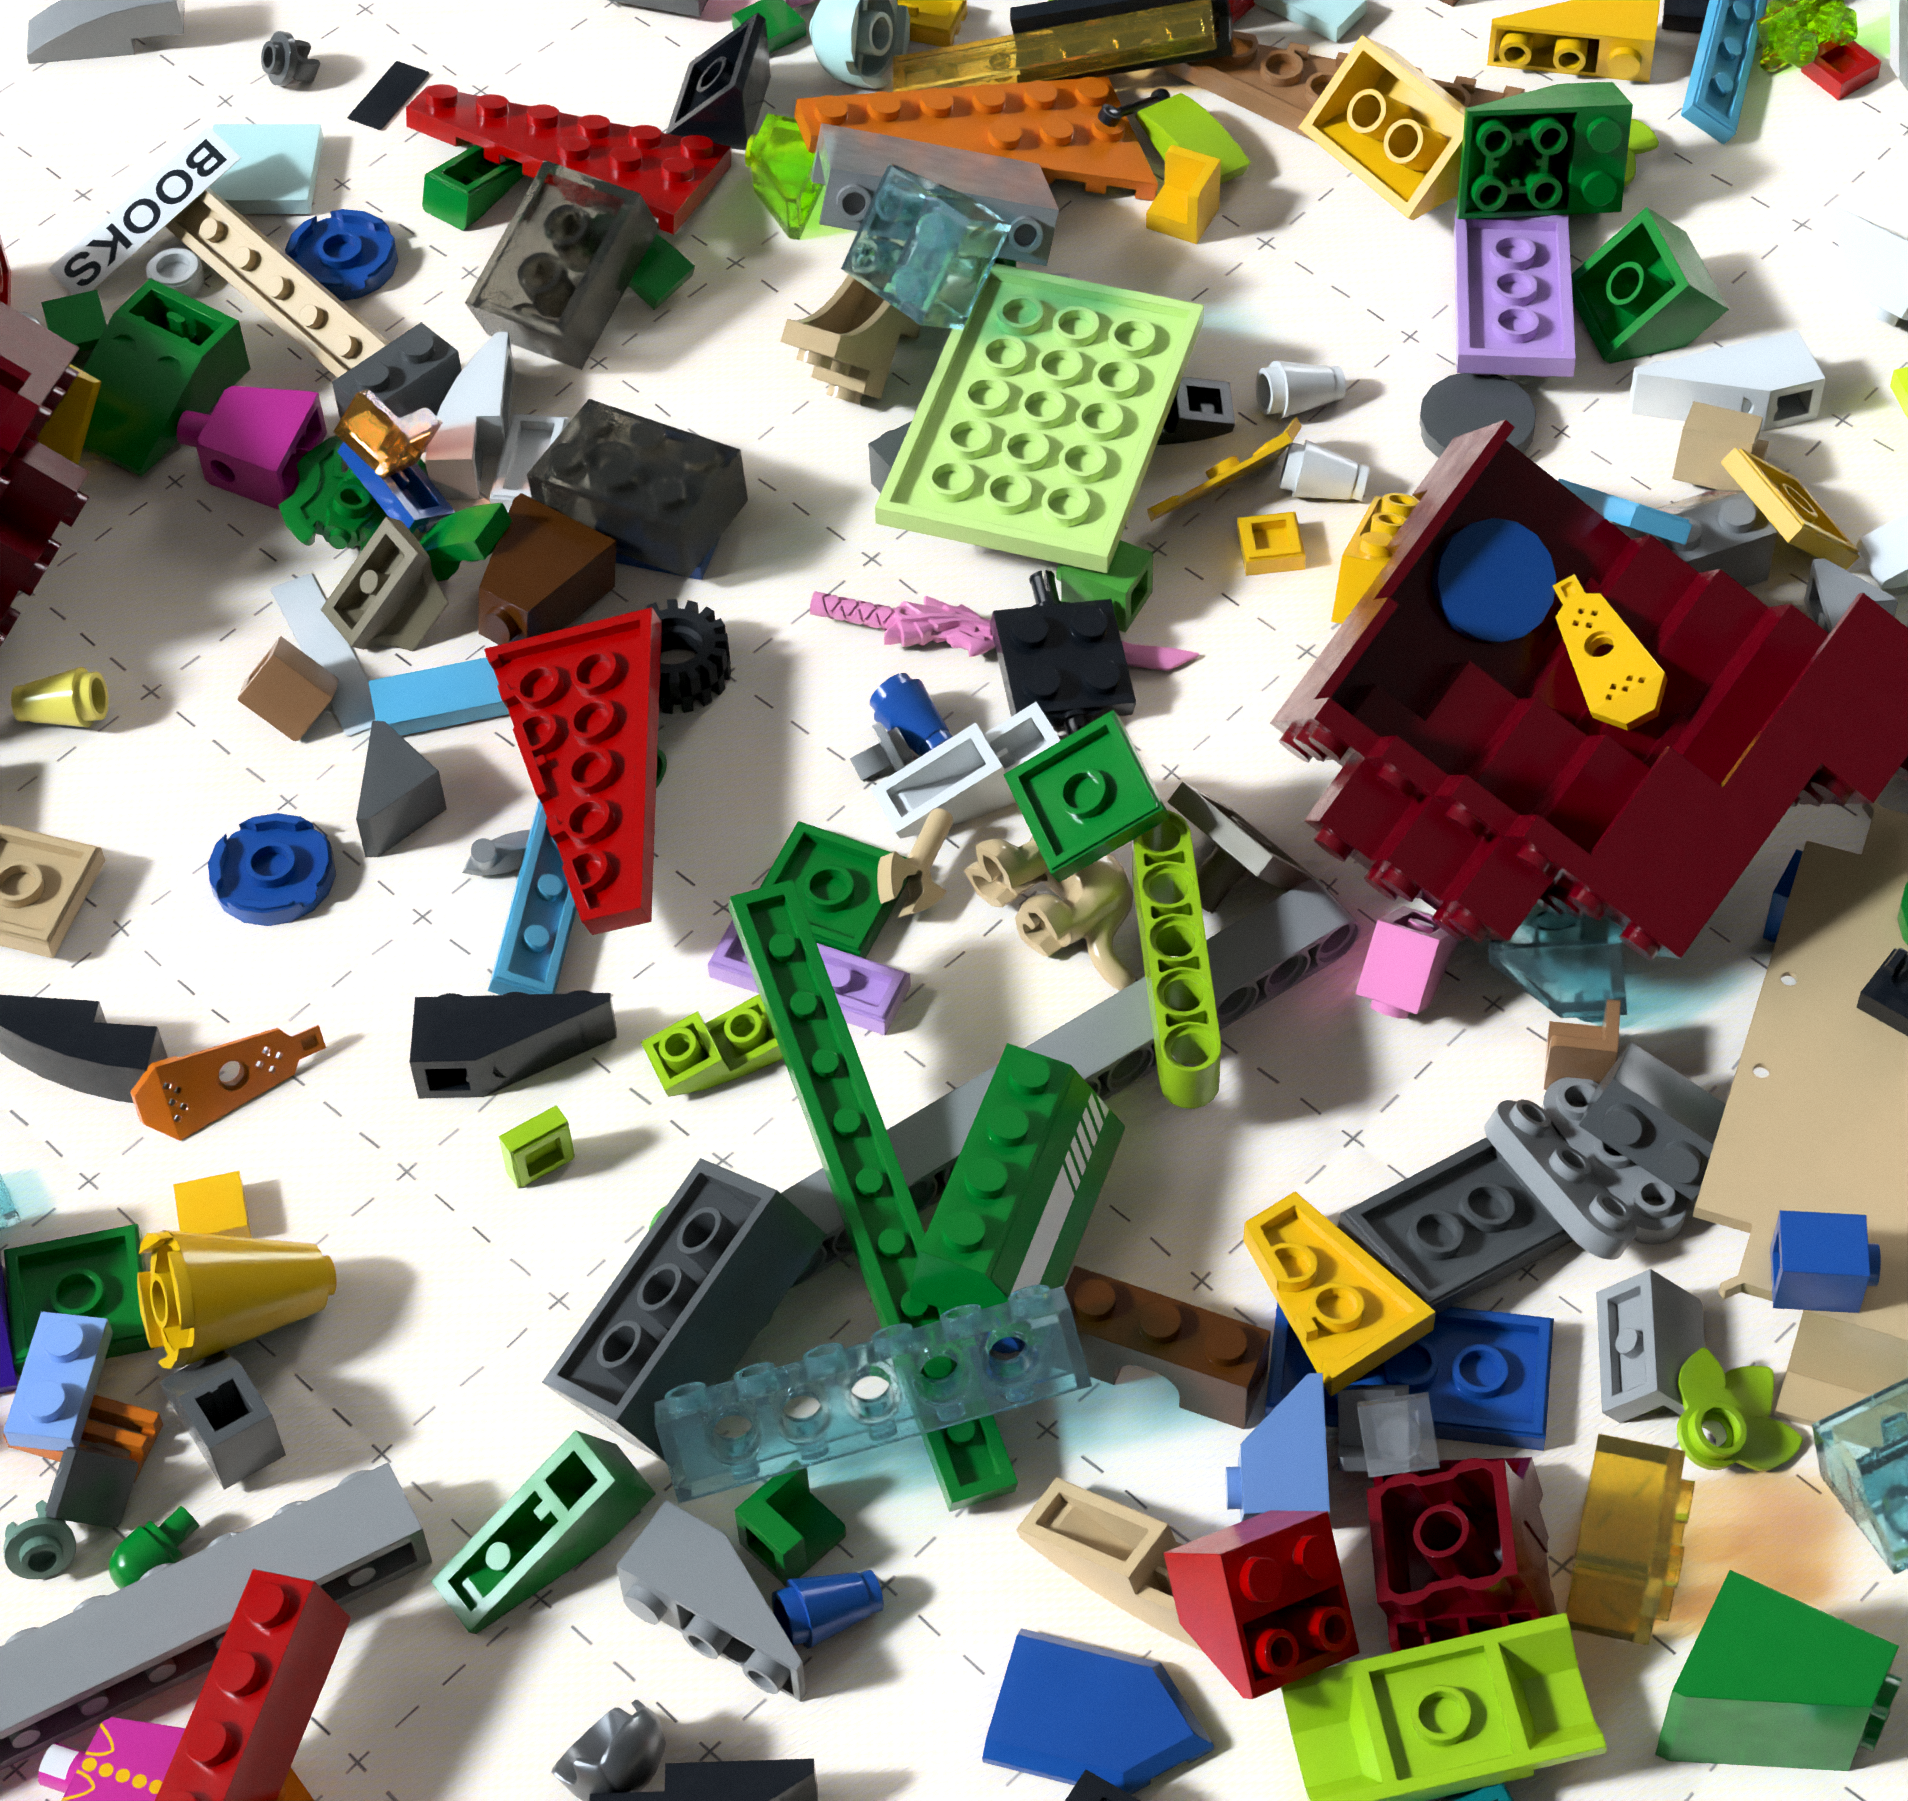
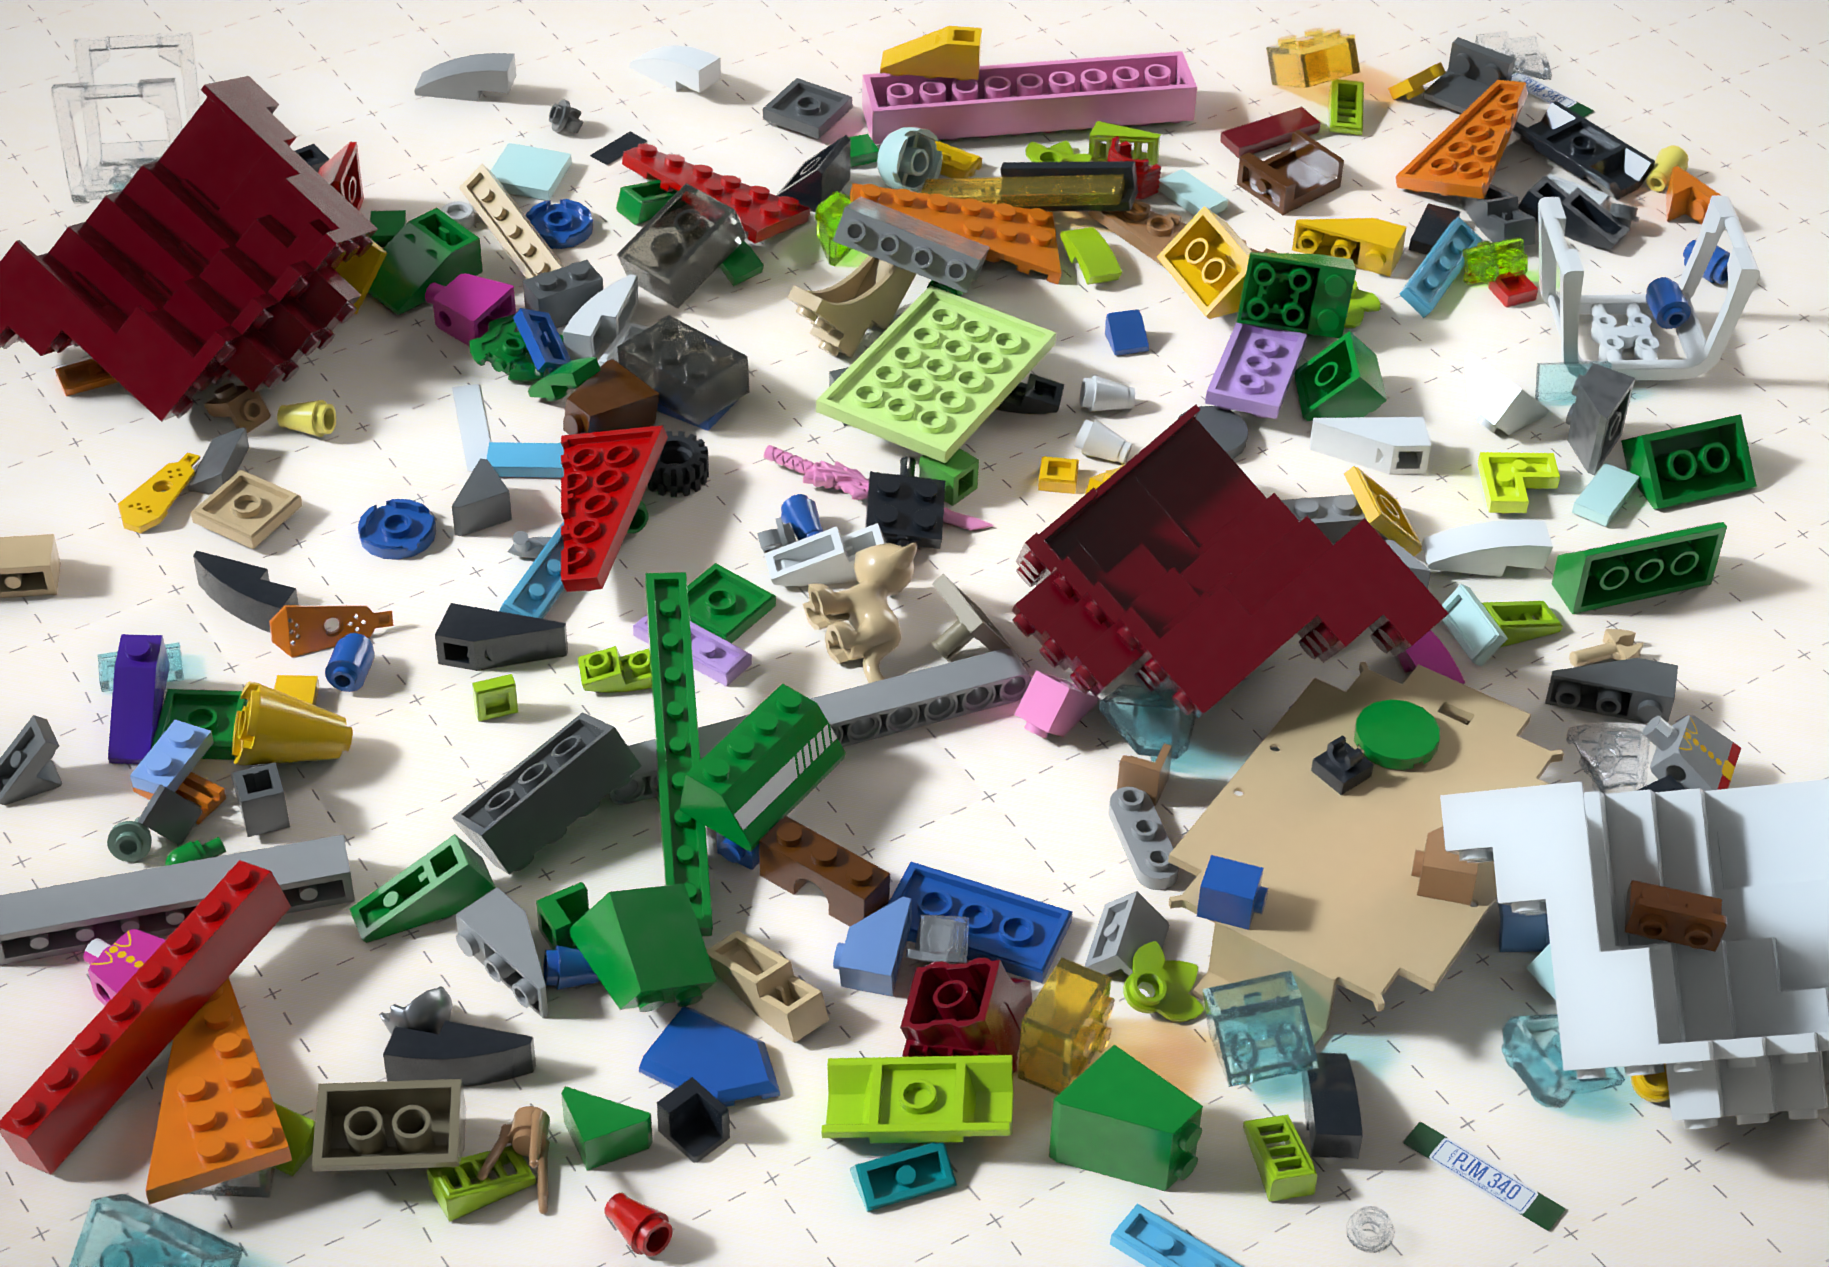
camera: 10 degrees right, 10 degrees down
(144, 213) = (451, 177): white sticker -> none
(283, 1135) = (350, 662): none -> blue brick
(288, 689) = (439, 436): medium nougat panel -> none
(382, 437) = (541, 313): clear orange panel -> none
(387, 592) = (516, 397): dark tan slope -> none
(845, 1424) = (525, 868): clear light blue brick -> none
(894, 868) = (775, 598): tan bar -> none
(925, 248) = (891, 264): clear light blue slope -> none
(939, 1559) = (646, 947): none -> green slope
(1086, 796) = (881, 568): green tile -> none
(1111, 115) = (1042, 229): black hinge -> none
(1174, 926) = (906, 668): lime beam -> none
(1188, 195) = (1078, 283): yellow panel -> none
(1229, 471) = (1046, 430): yellow piece -> none
(1265, 1599) = (831, 1009): red slope -> none
(1291, 269) = (1126, 332): none -> blue slope
(1333, 1292) = (939, 865): yellow wing -> none
(1455, 1226) = (1032, 851): dark grey tile -> none
(1493, 581) = (1172, 503): blue tile -> none
(1560, 1178) = (1104, 837): light grey plate -> none
(1620, 669) = (1232, 568): yellow piece -> none
(1633, 514) = (1271, 483): medium azure tile -> none
(1656, 1119) = (1165, 807): dark grey brick -> none
(1708, 438) = (1343, 459): tan brick -> none

